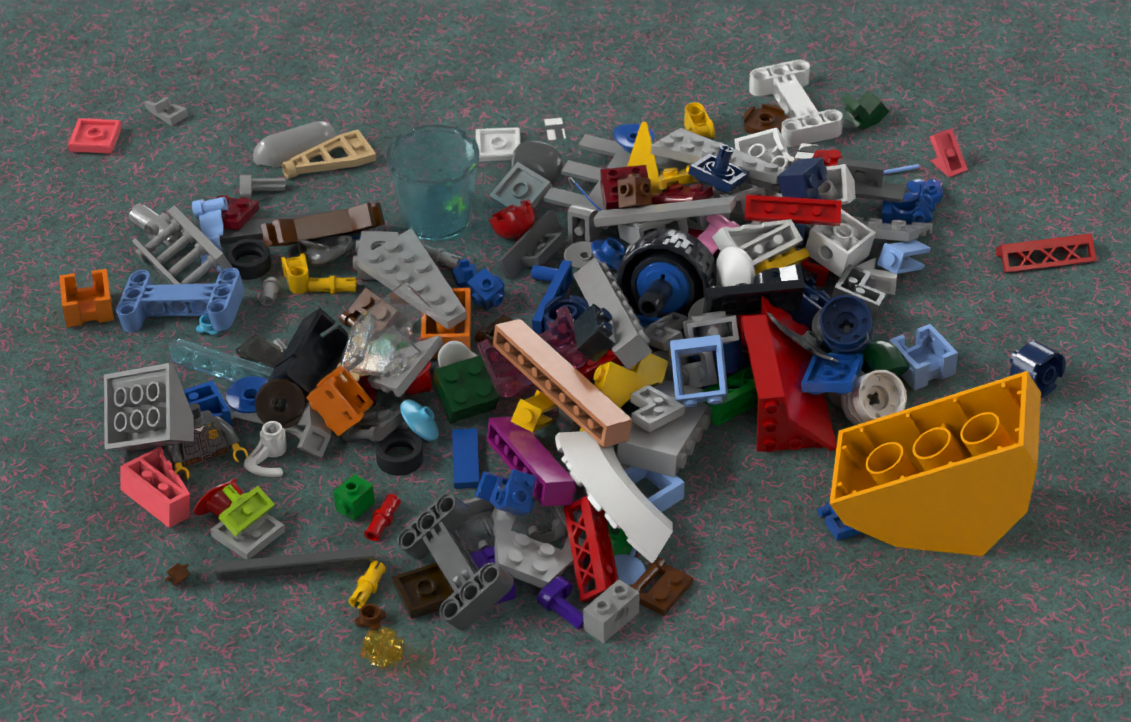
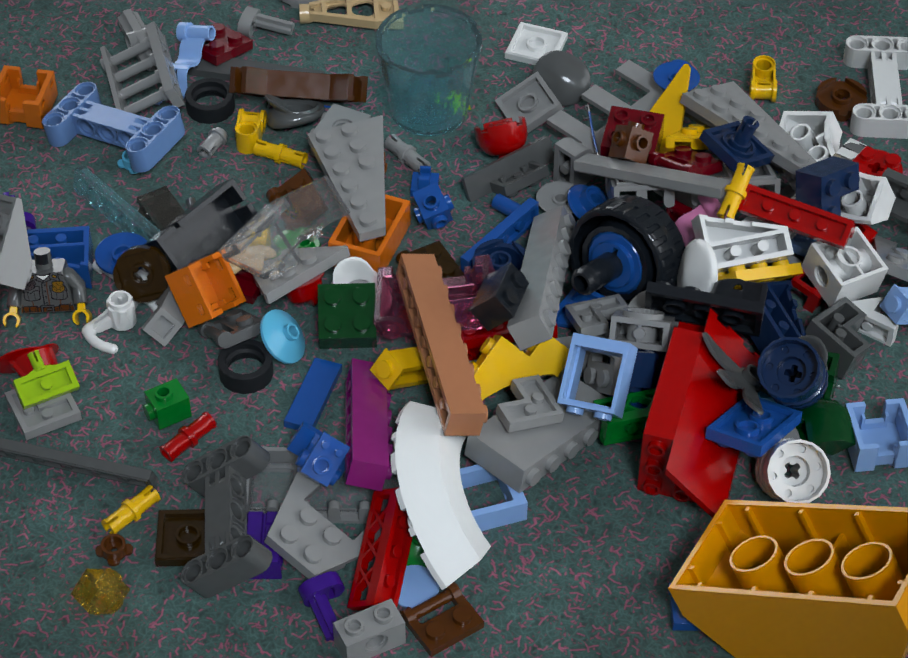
camera: 20 degrees right, 5 degrees up
(555, 128) = (607, 44): sticker -> none
(741, 203) = (735, 191): none -> yellow pin

